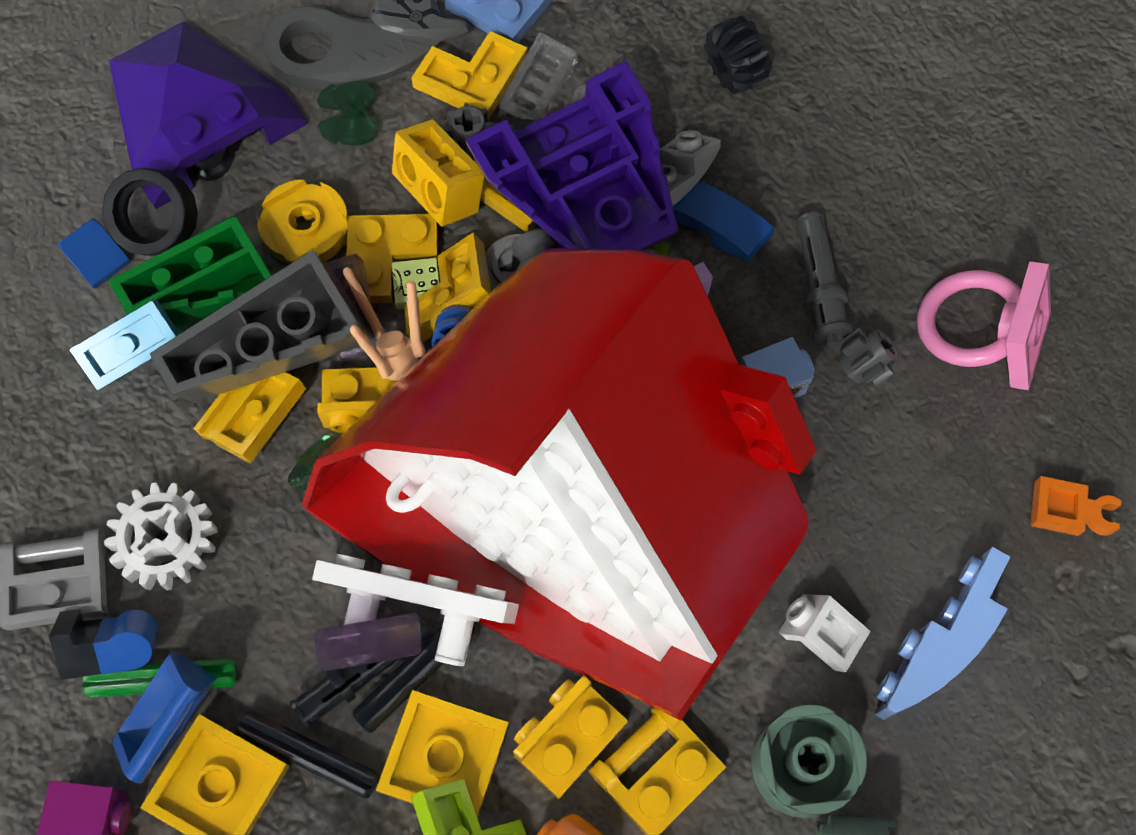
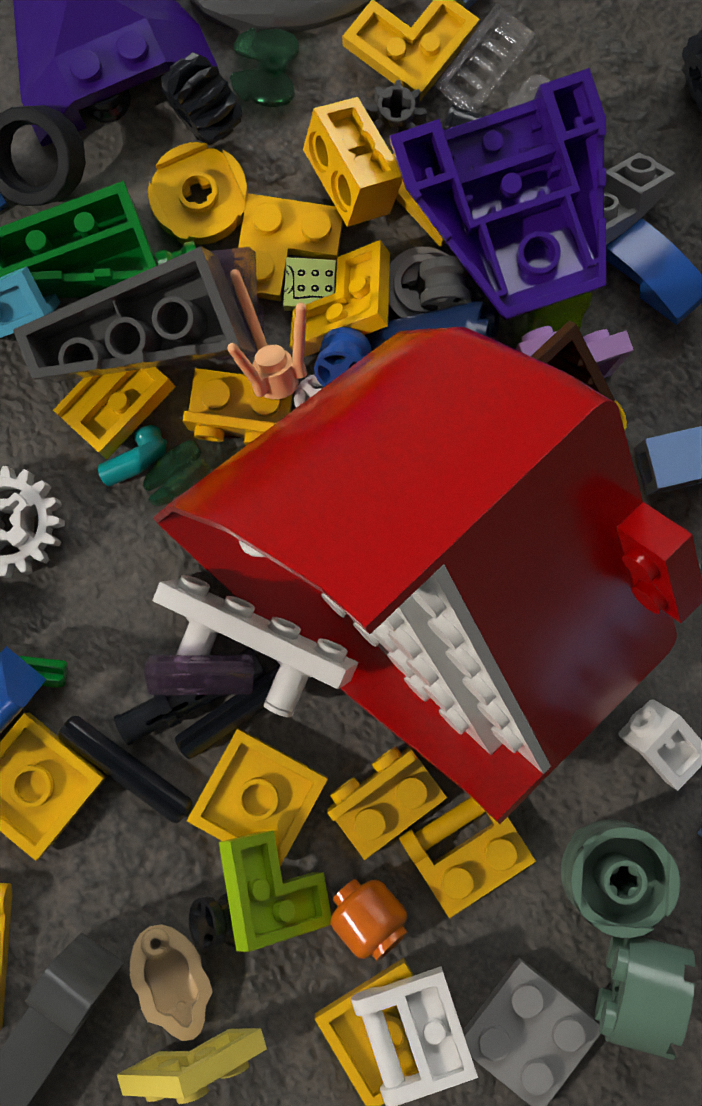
camera: 15 degrees right, 15 degrees up
(273, 463) = (136, 460): none -> teal arm
(295, 143) = (201, 98): none -> black gear

